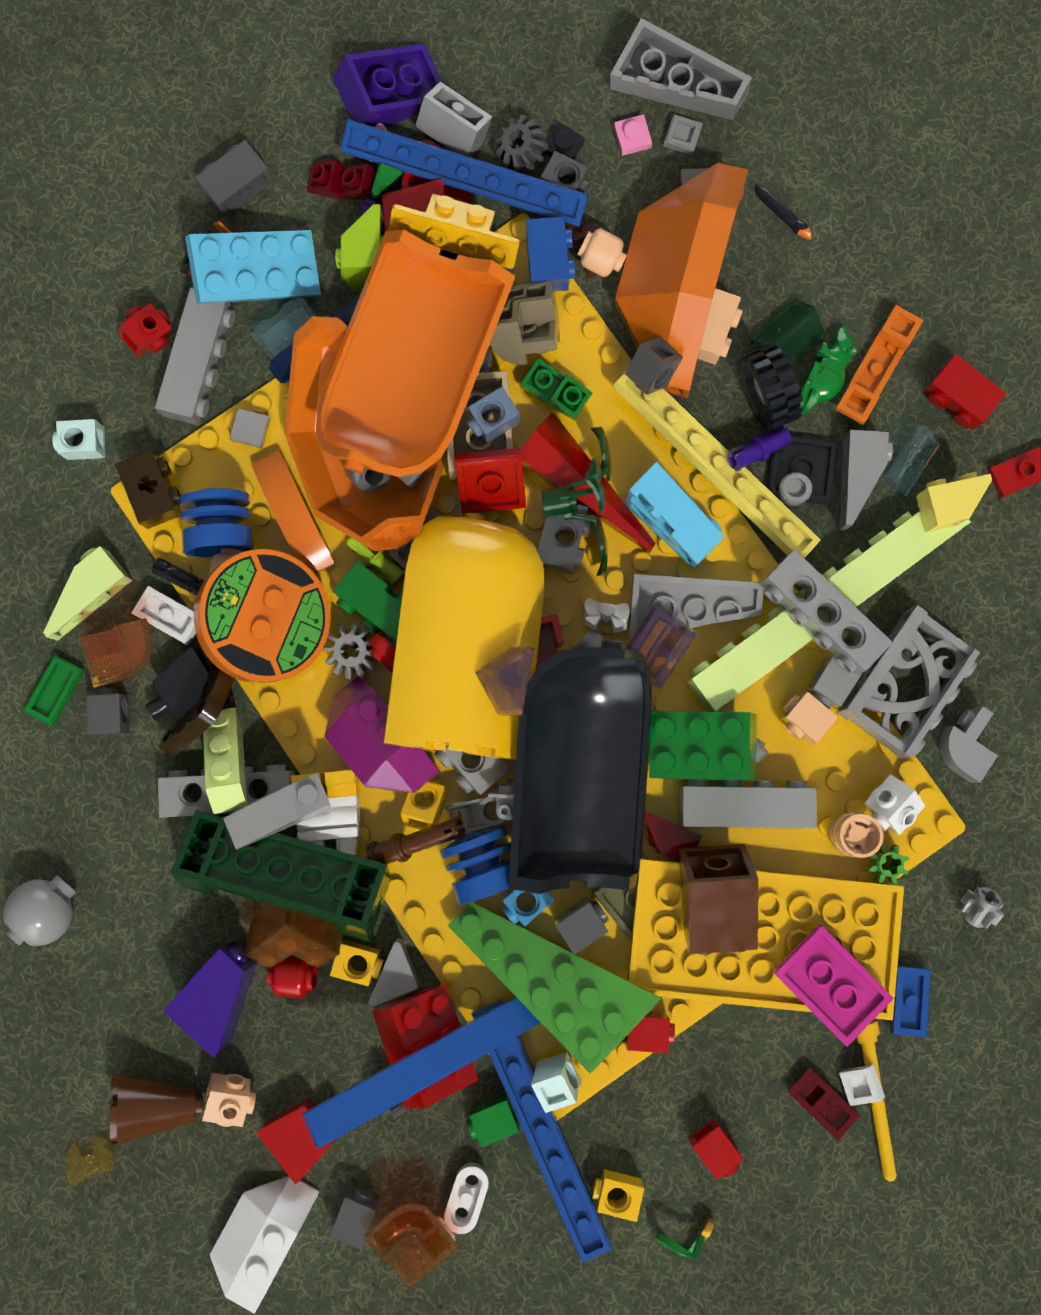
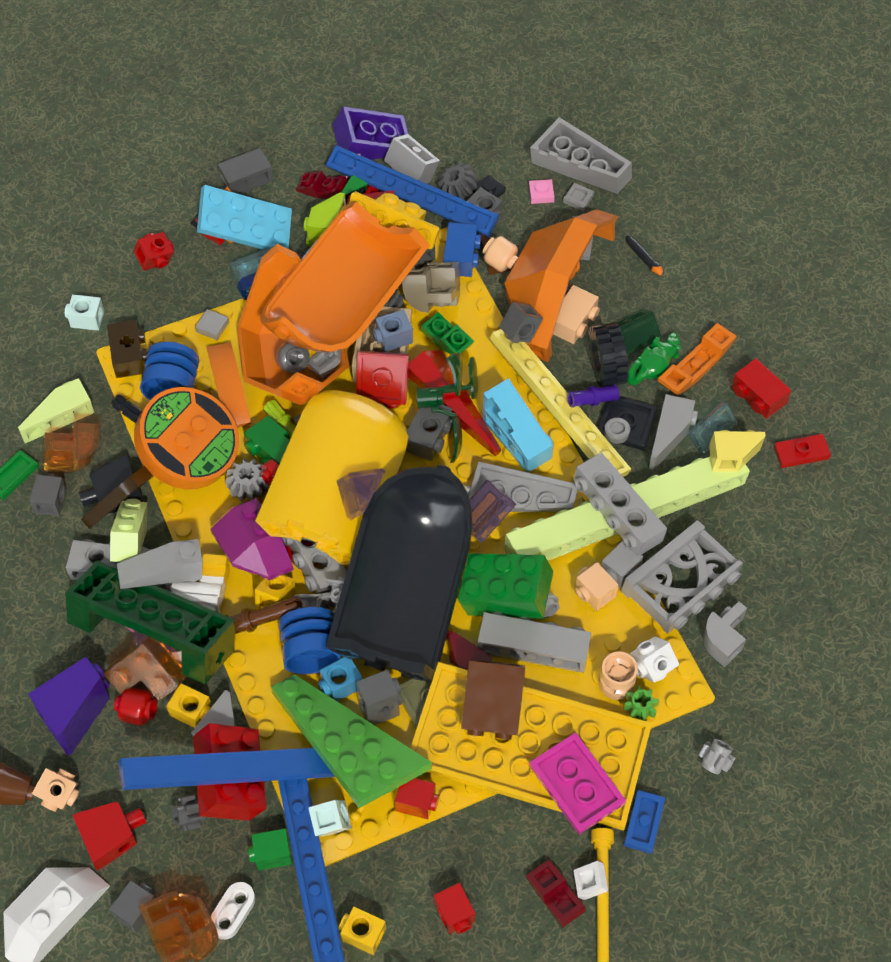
camera: 10 degrees right, 25 degrees down
(166, 615) = (115, 436): white plate -> none
(194, 360) = (184, 275): light grey brick -> none

